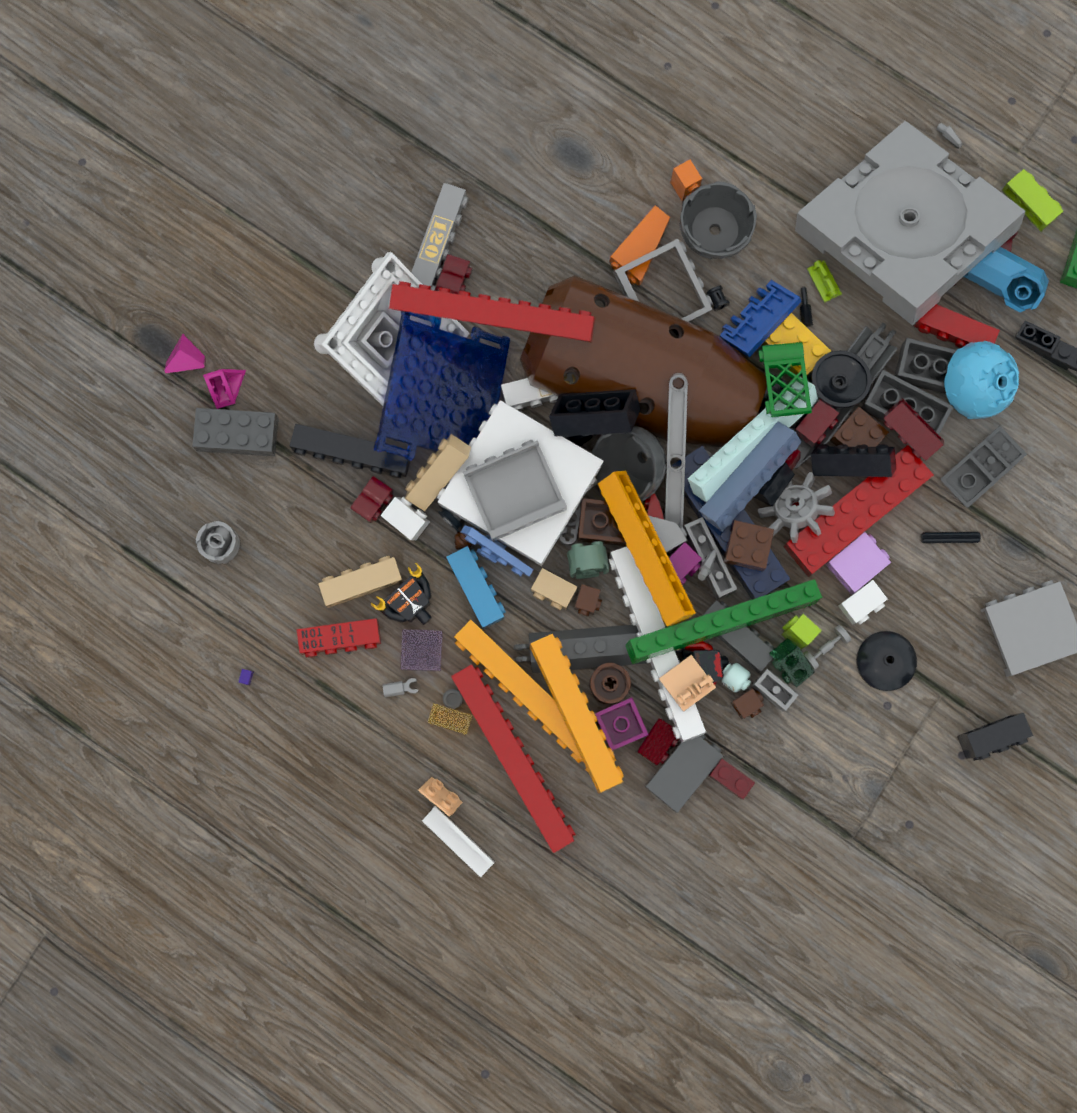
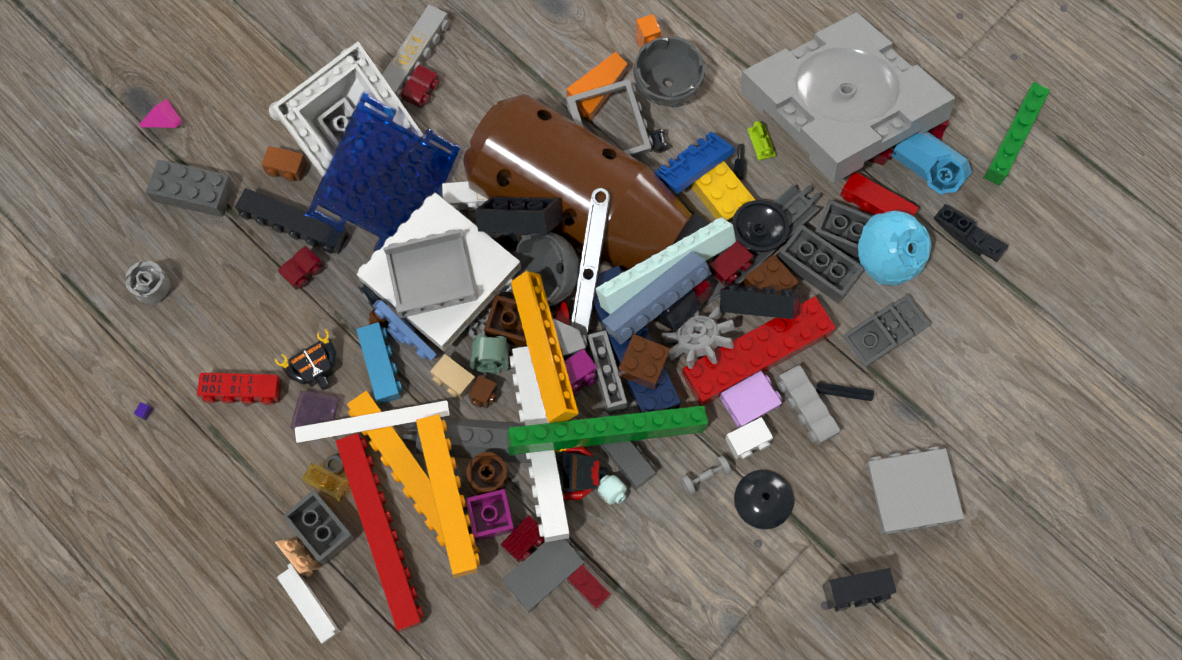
camera: 10 degrees right, 10 degrees down
(224, 386) = (190, 146): dark pink slope -> none
(328, 388) = (284, 163): none -> dark orange brick
(360, 582) = (271, 340): tan brick -> none
(398, 688) = (284, 446): light grey bar -> none
(405, 518) = (327, 289): white brick -> none
(437, 472) = (363, 249): tan brick -> none
(453, 765) = (318, 527): none -> dark grey brick
(483, 650) = (370, 421): none -> white sticker
(492, 312) = (439, 106): red brick -> none
(687, 683) = (559, 482): light nougat hinge -> none
(706, 567) = (601, 375): light grey bar -> none
(748, 704) = (619, 517): reddish brown brick -> none
(775, 690) = (647, 507): light grey brick -> none
(784, 357) = (707, 196): green piece -> none
(791, 662) = (671, 481): clear green brick -> none
(800, 630) = (681, 452): lime brick -> none
(913, 430) = (821, 281): dark red brick -> none
(918, 560) = (808, 405): none -> light grey brick
(949, 134) = (897, 34): light grey bar -> none
(1033, 199) = (968, 101): lime brick -> none

